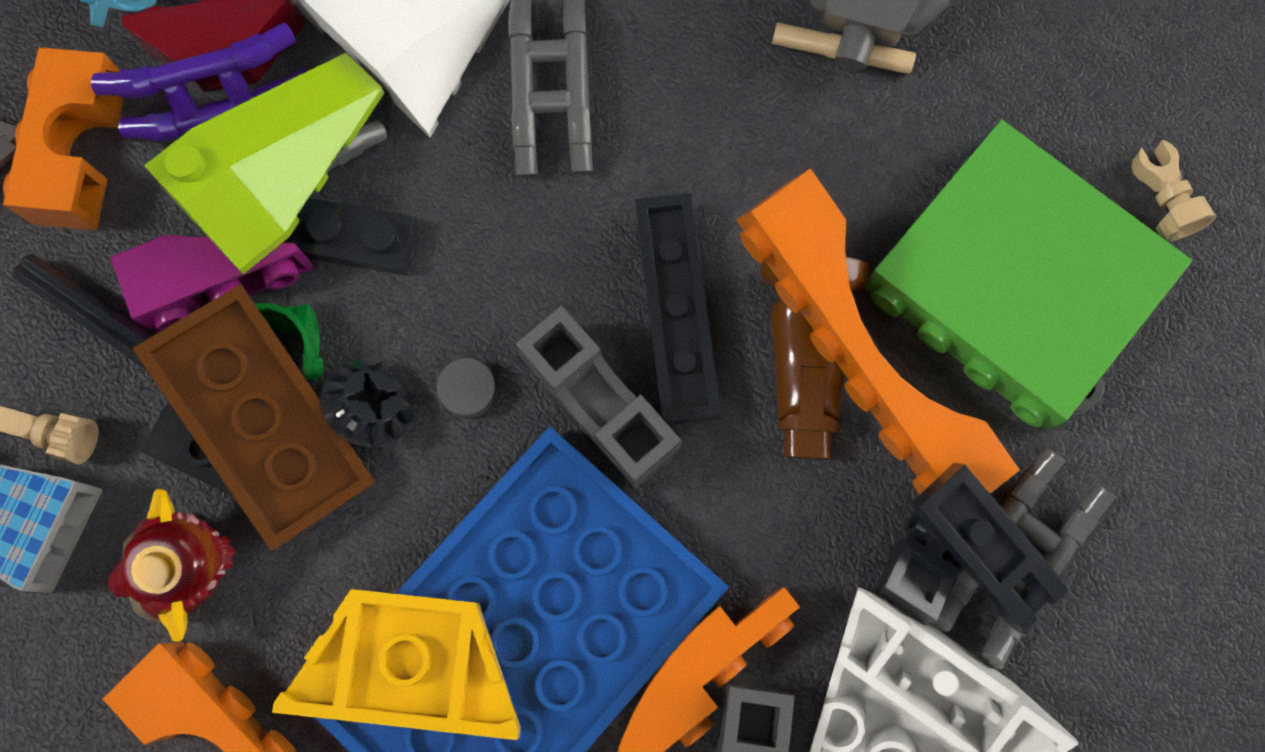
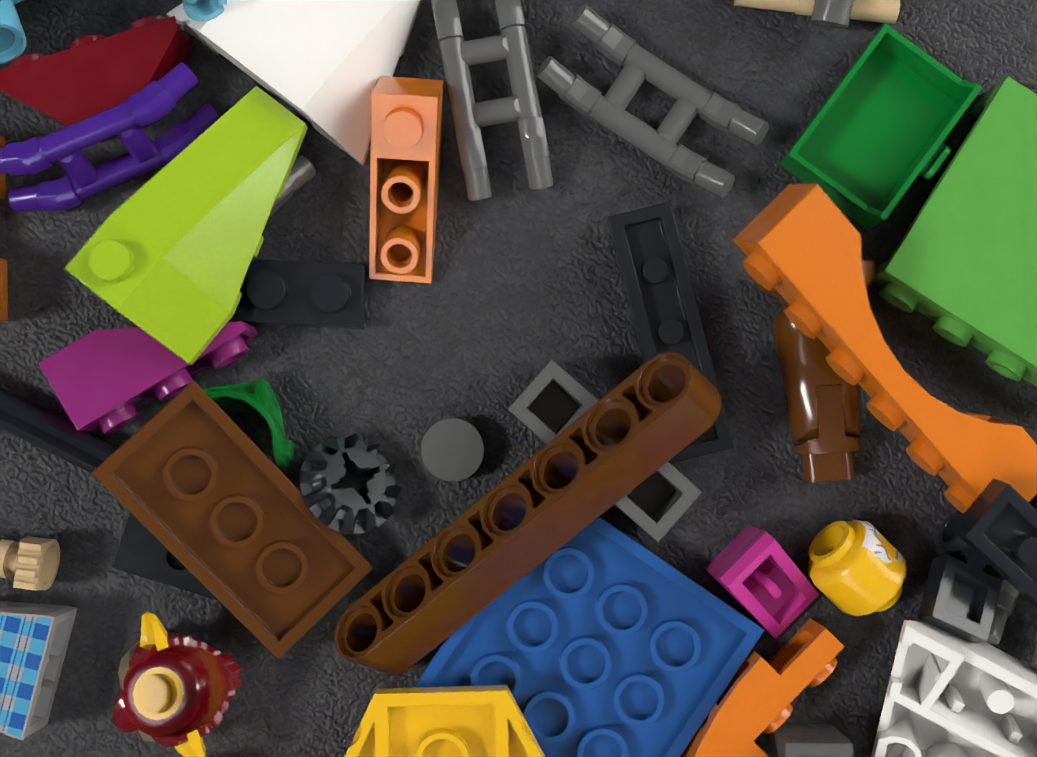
camera: 15 degrees left, 10 degrees up
(461, 147) = (404, 177): none -> orange slope
(518, 442) = (530, 514): none -> reddish brown beam
(683, 81) = (642, 66): none -> dark grey piece
(736, 543) = (763, 579): none -> dark pink slope
(823, 540) = (856, 567): none -> yellow head
(888, 154) = (881, 128): none -> green container

